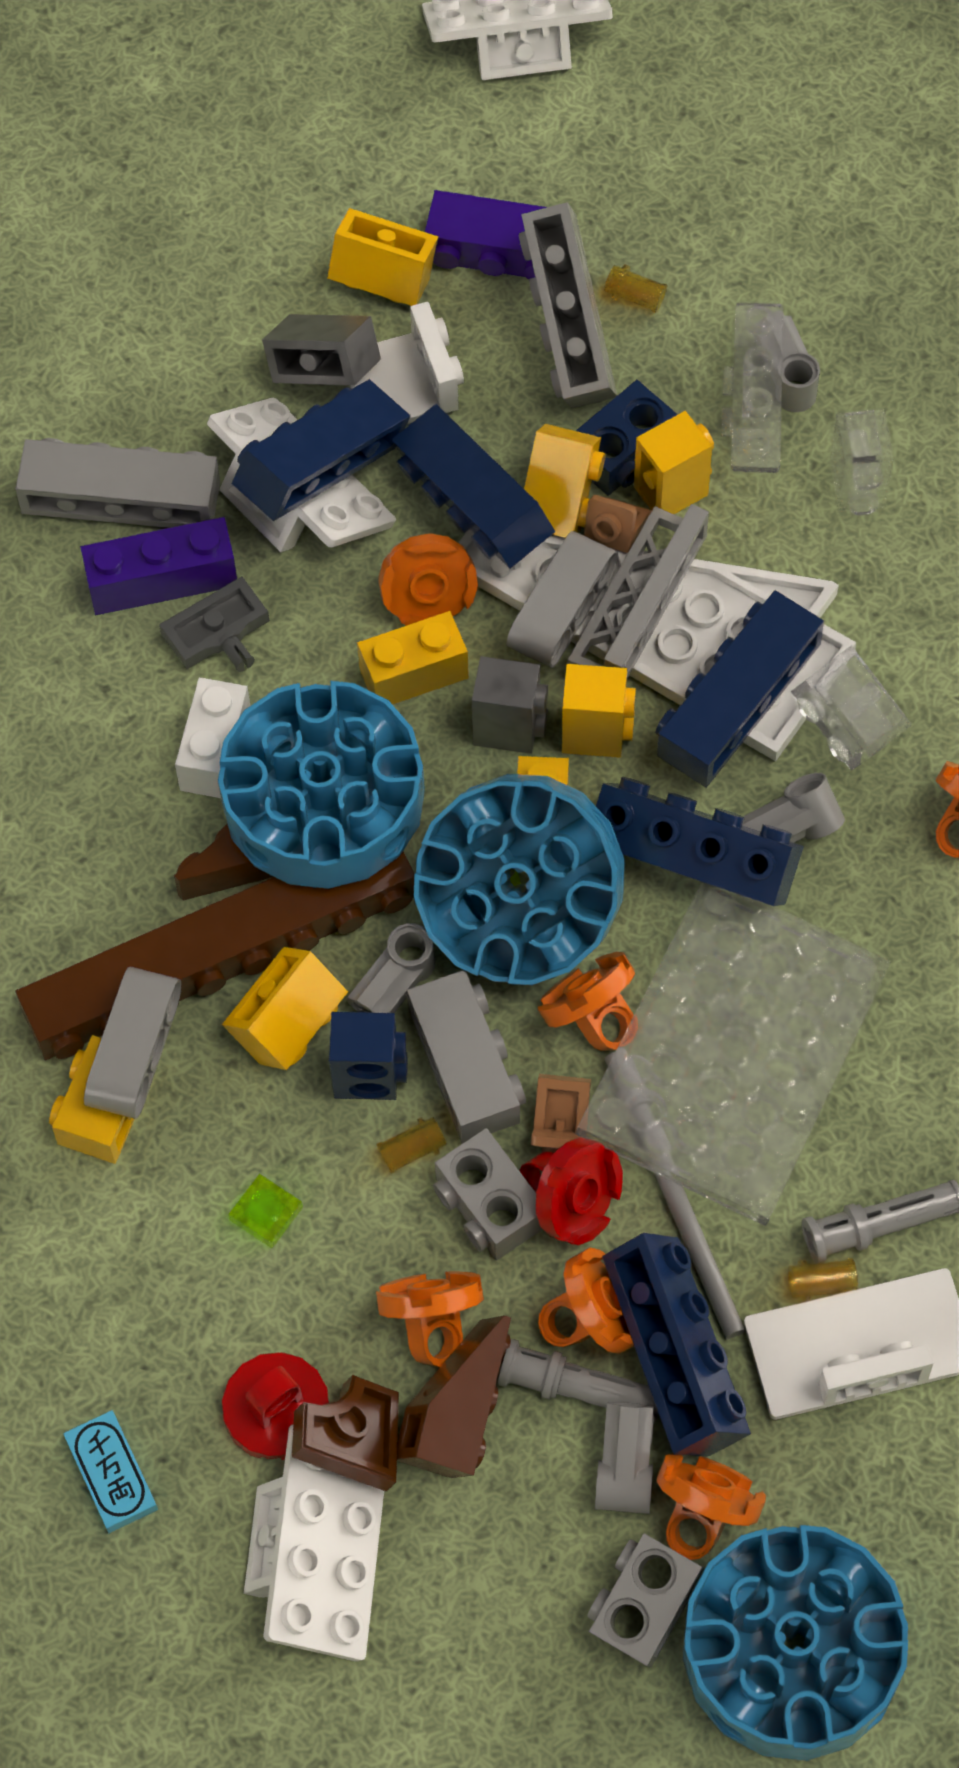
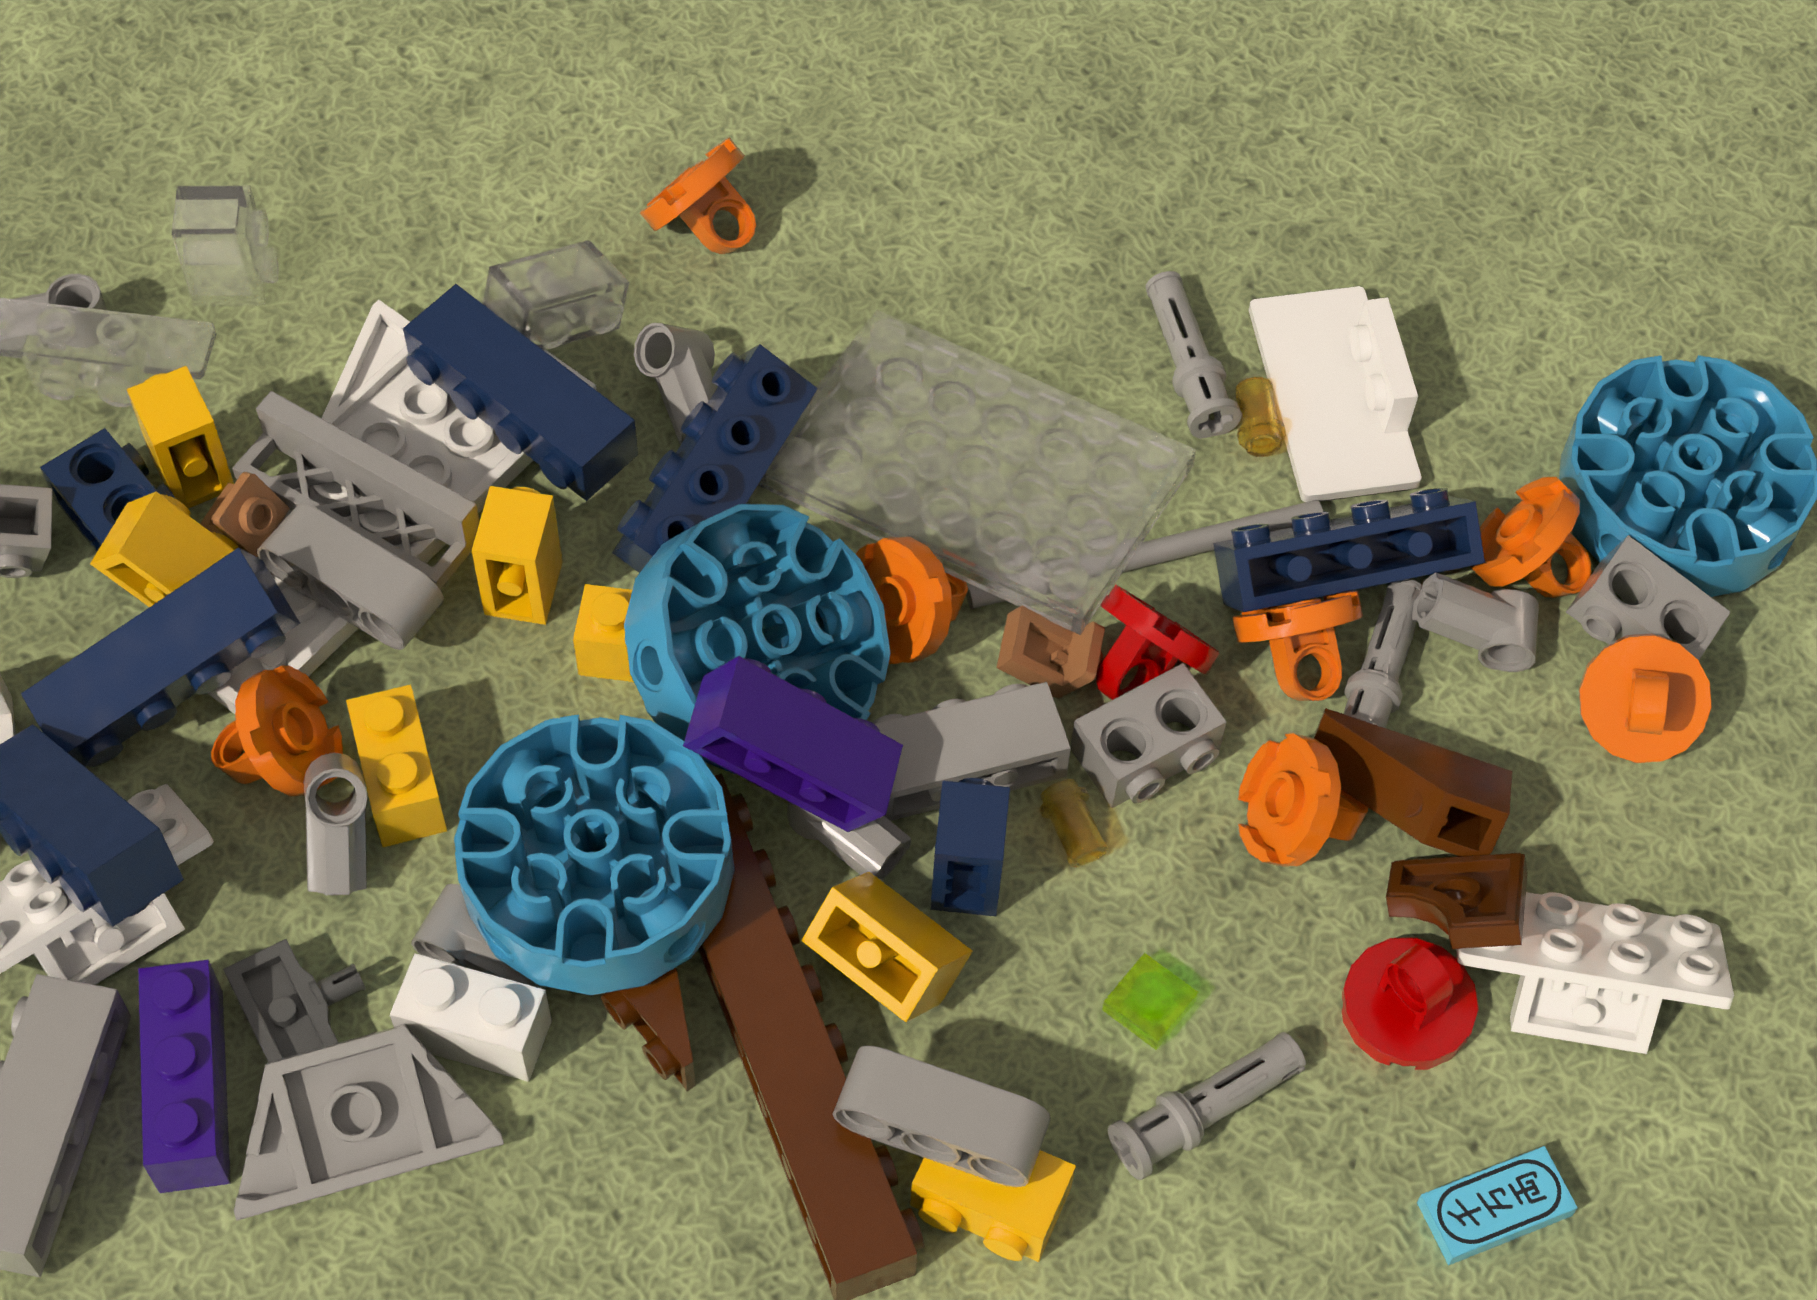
camera: 90 degrees left, 5 degrees down
(133, 678) = (354, 1119): none -> light grey wing
(166, 1233) = (1182, 1118): none -> light grey pin
(355, 619) = (335, 829): none -> light grey piece
(413, 903) = (793, 744): none -> dark purple brick
(508, 705) = (492, 650): flat silver brick -> none
(556, 1591) = (1645, 698): none -> orange tile

